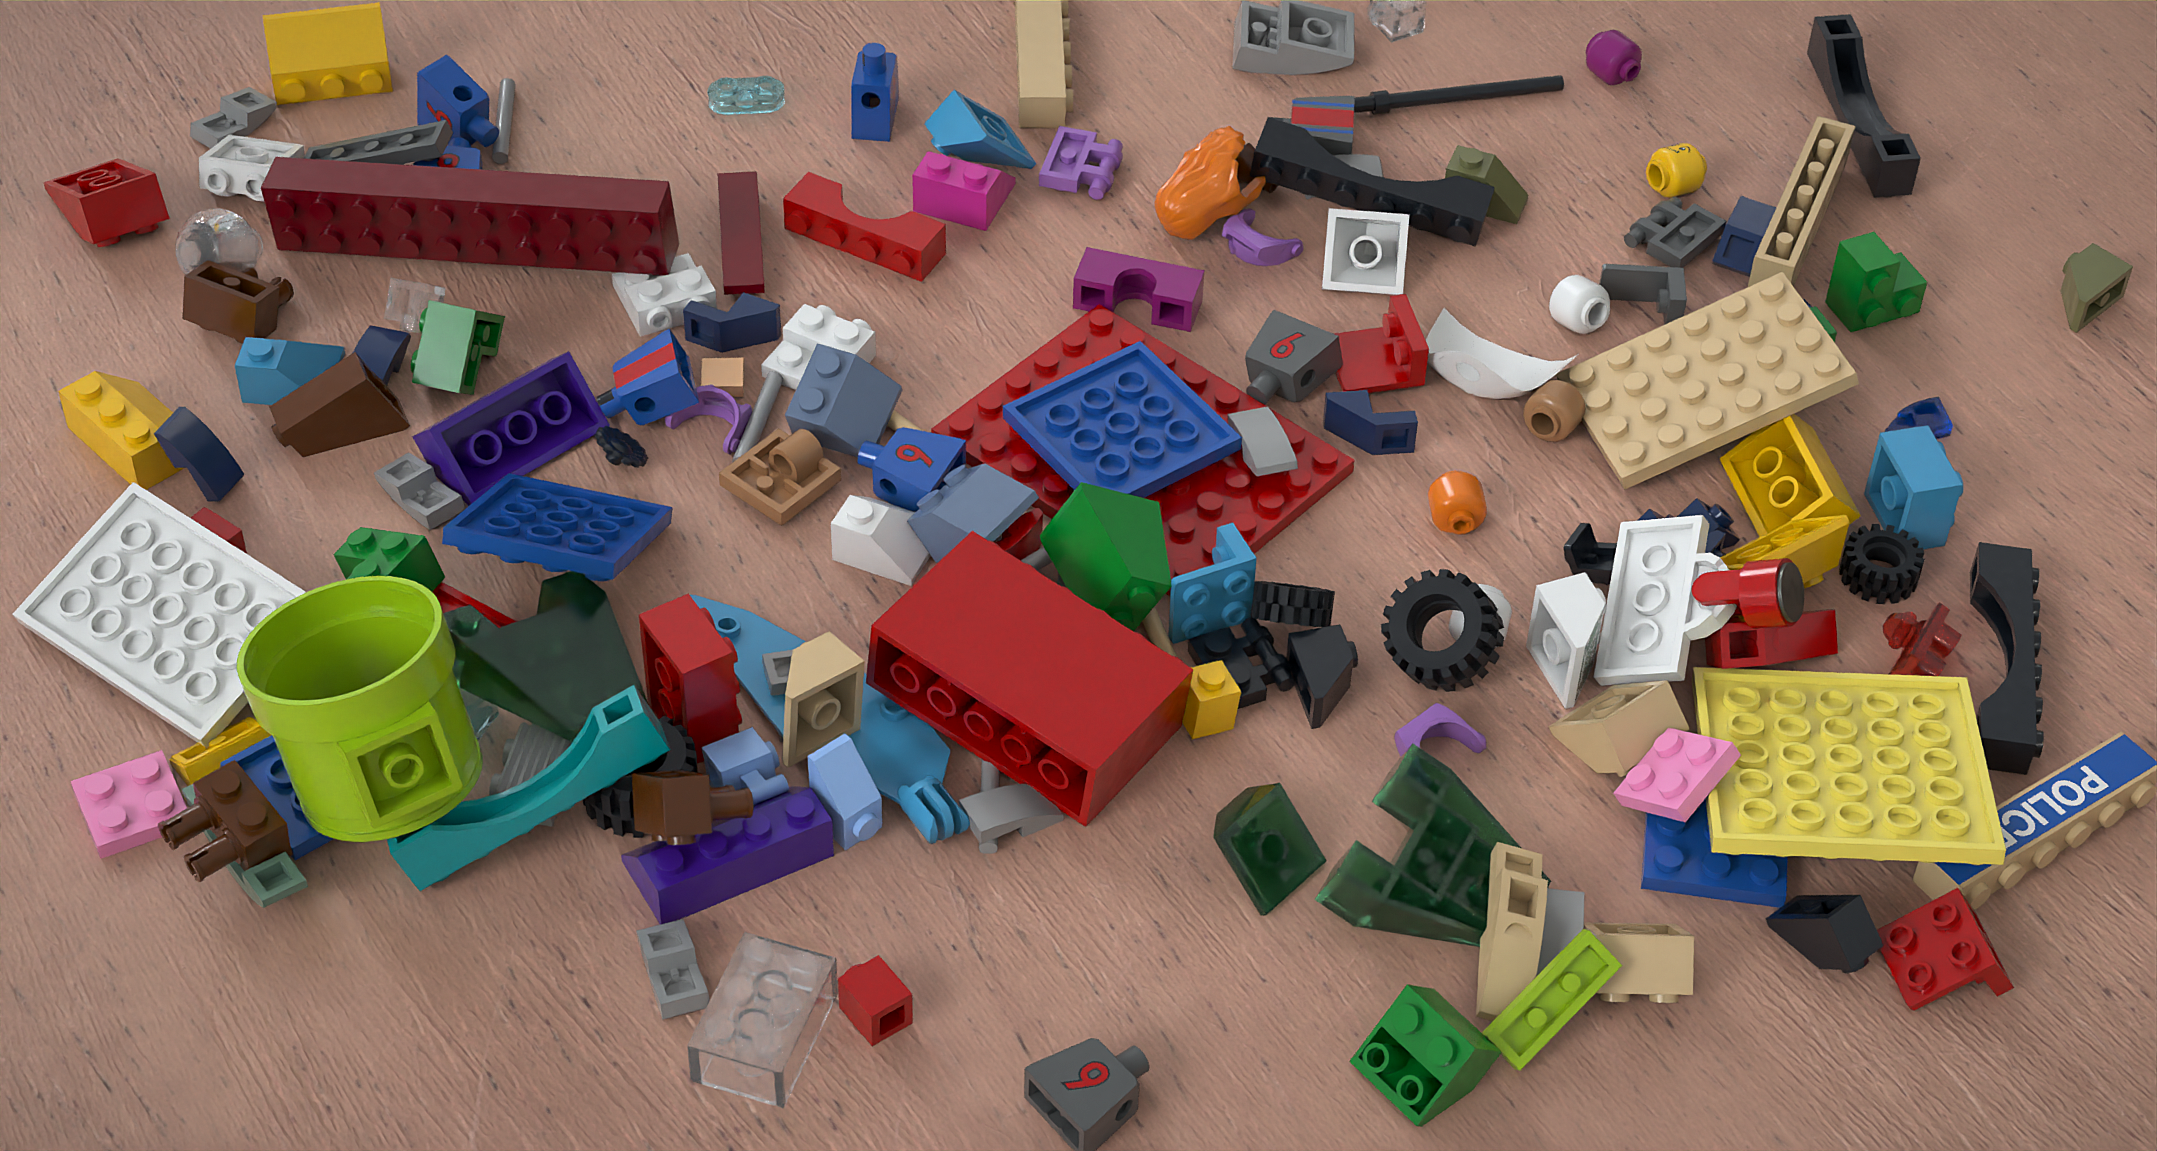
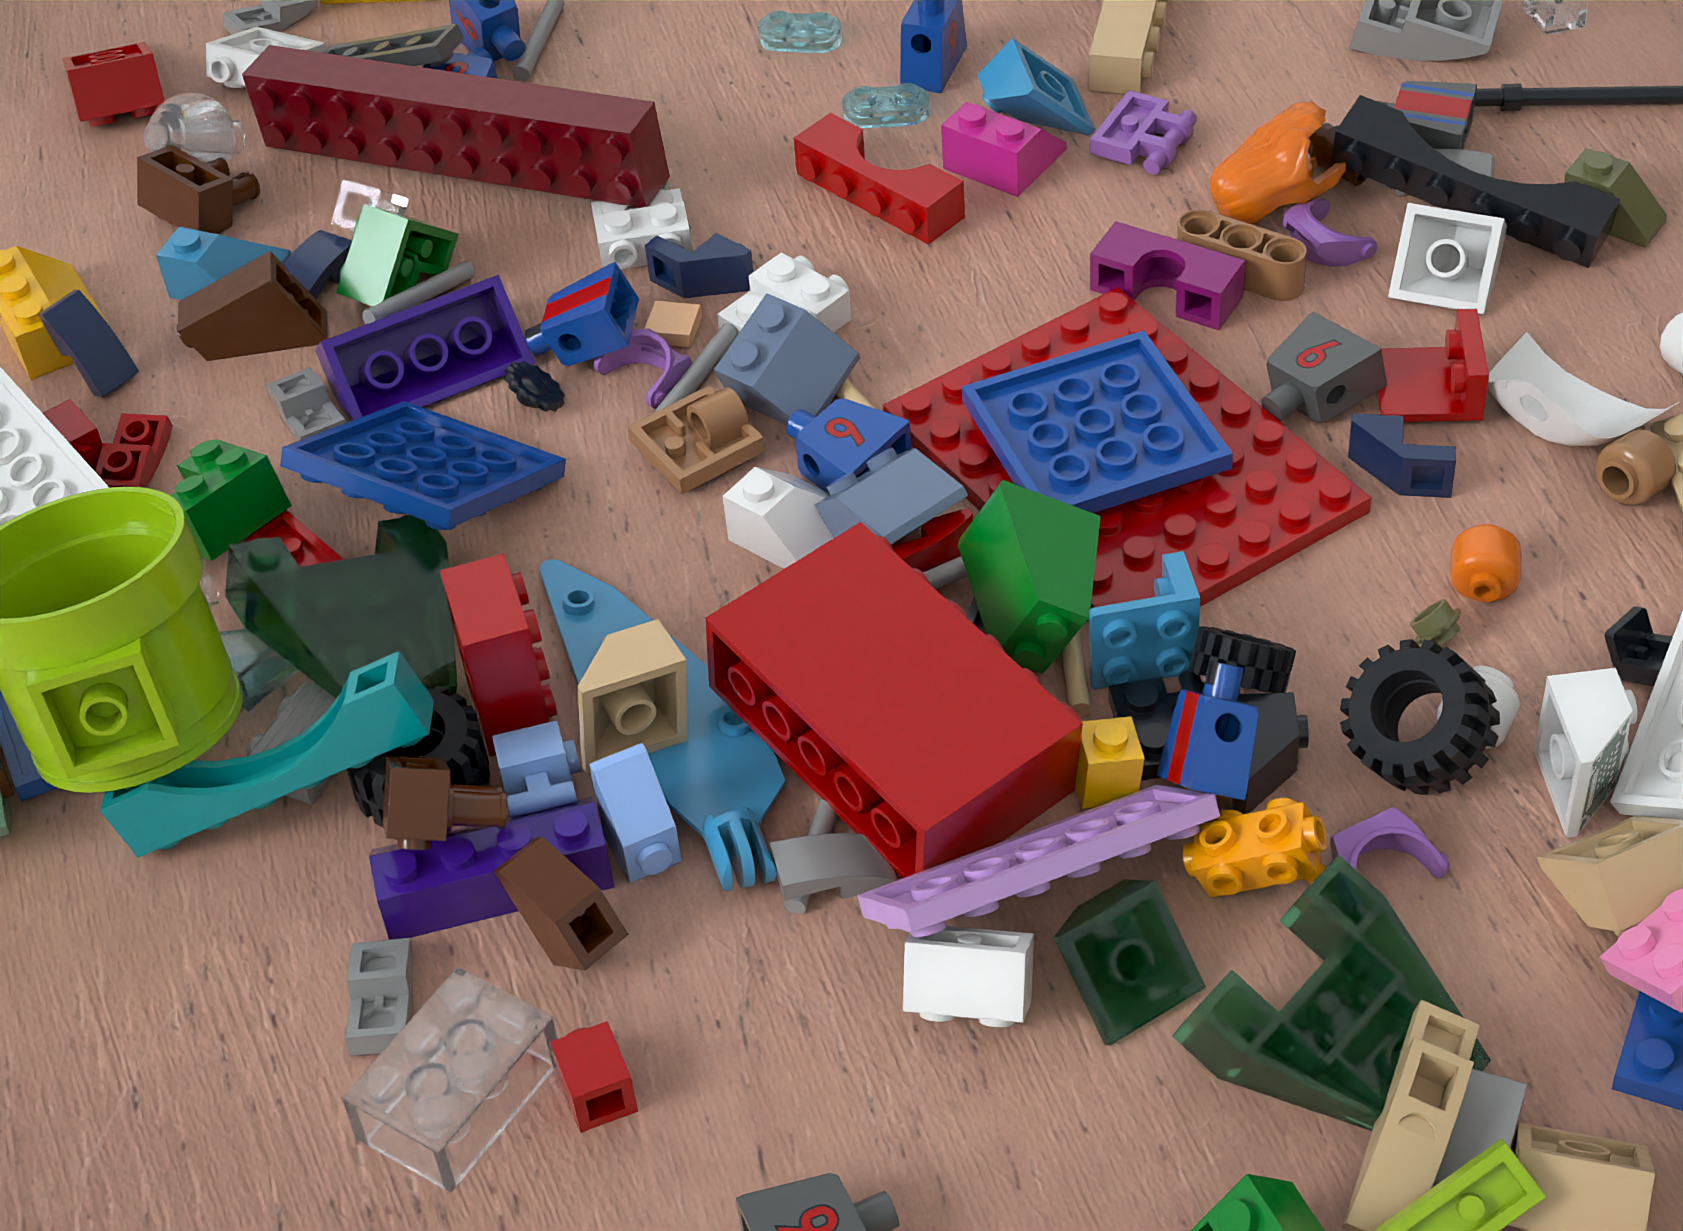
camera: 20 degrees right, 0 degrees up
(274, 541) = (134, 451): none -> red slope
(486, 375) = (420, 292): none -> light grey bar
(740, 233) = (741, 172): dark red slope -> none
(810, 873) = (560, 905): none -> reddish brown slope
(847, 158) = (886, 106): none -> clear light blue plate
(1149, 877) = (969, 975): none -> white brick
(1179, 780) = (1031, 860): none -> lavender plate
(1225, 266) = (1272, 260): none -> medium nougat beam
(1263, 441) = (1259, 462): light grey slope -> none
(1289, 667) = (1211, 736): none -> blue torso
(1342, 749) = (1257, 848): none -> light orange brick
(1431, 555) = (1436, 623): none -> olive plate

